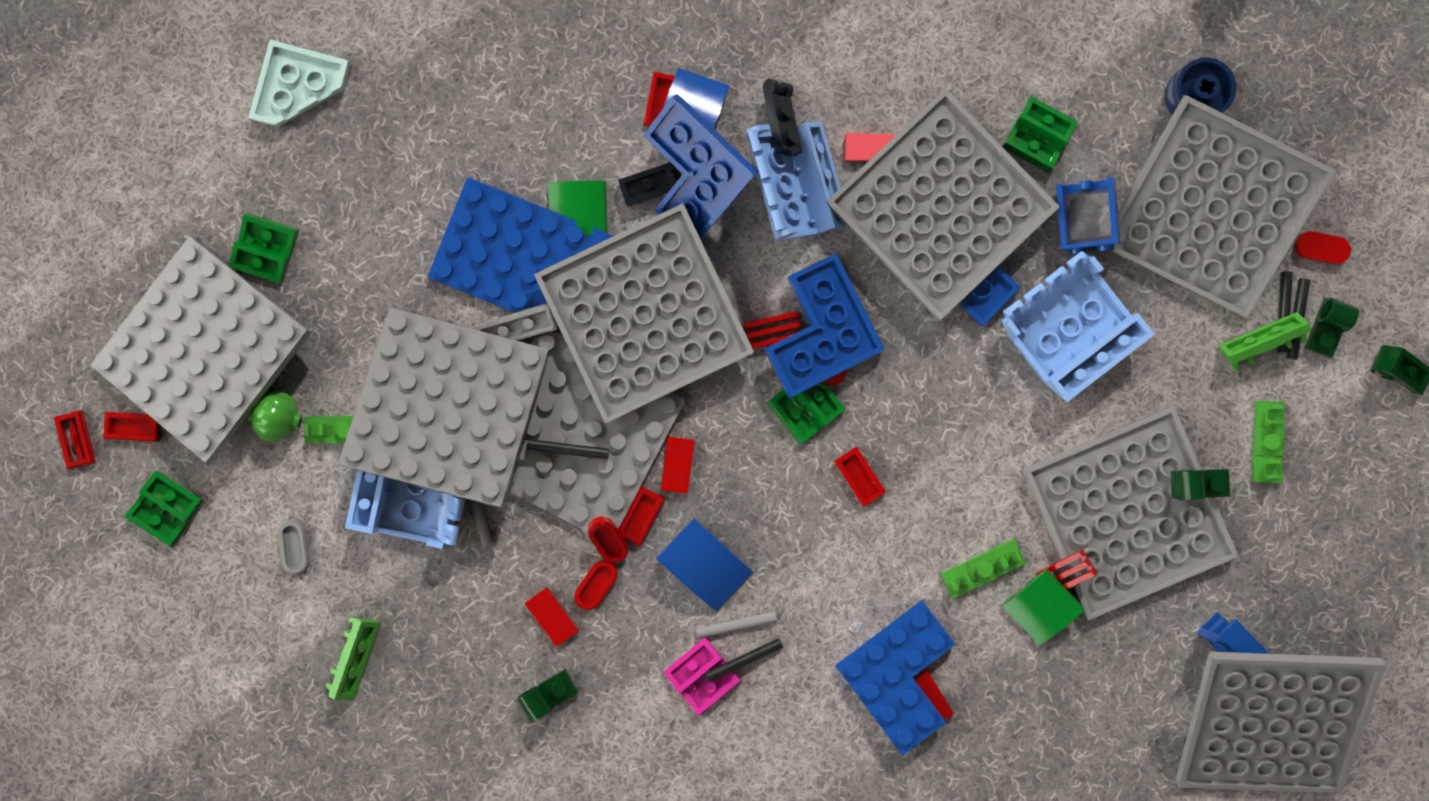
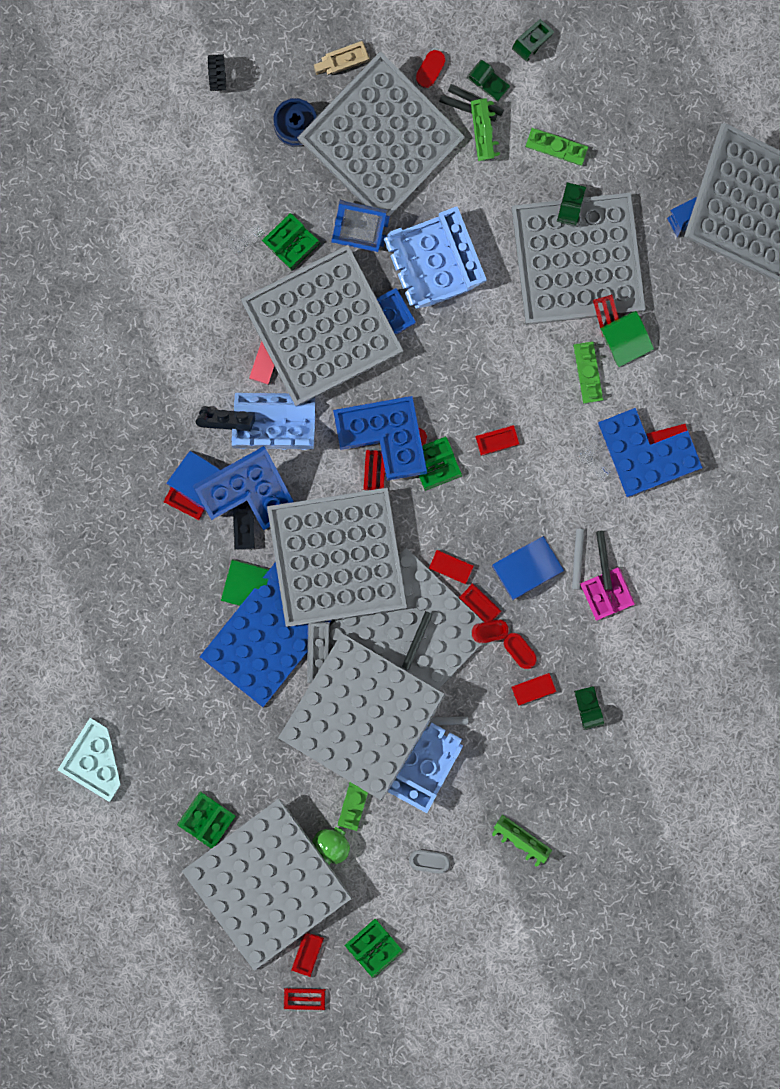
camera: 70 degrees left, 5 degrees down
(1301, 127) = (343, 59): none -> tan hinge

